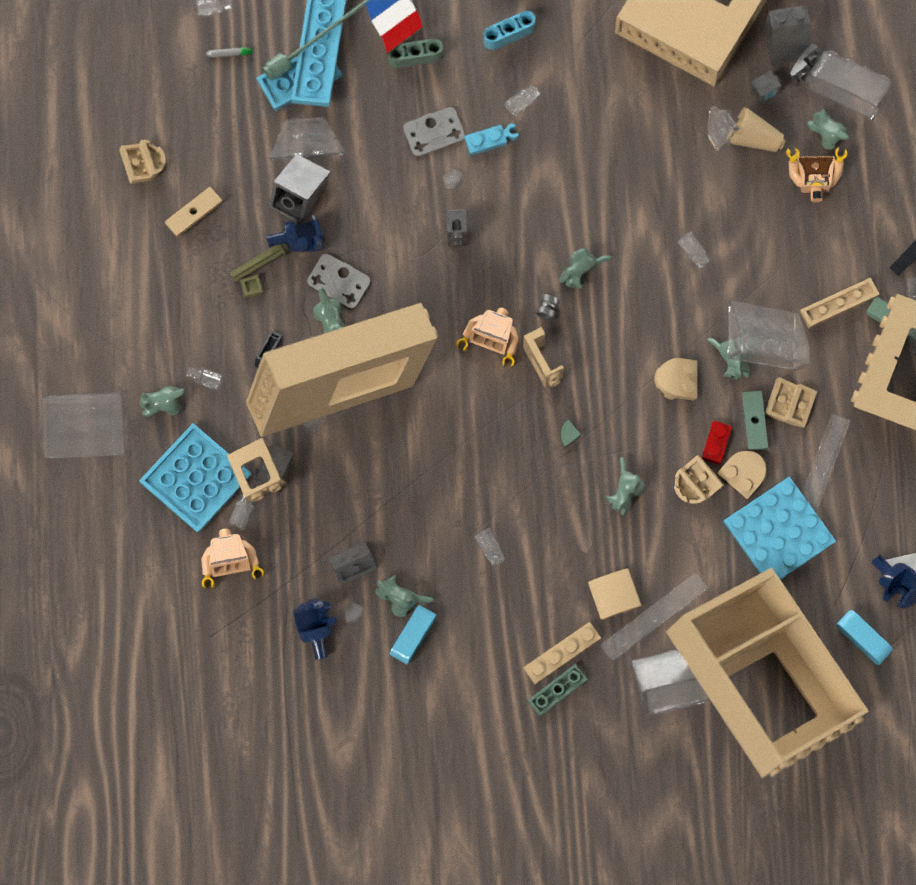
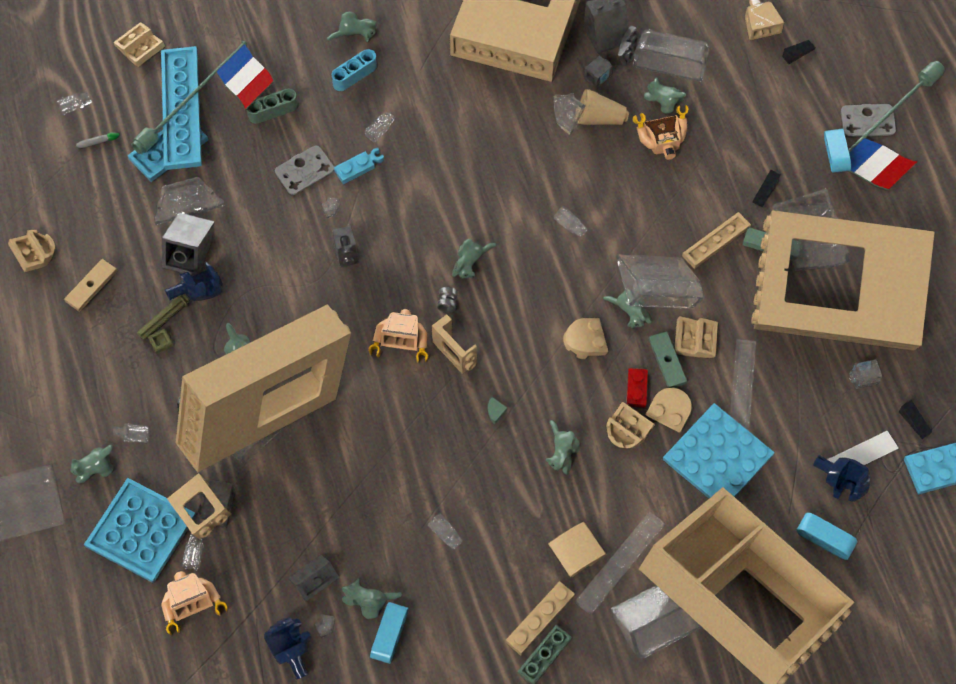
camera: 15 degrees left, 10 degrees down
(335, 285) = (241, 322): light grey axle -> none

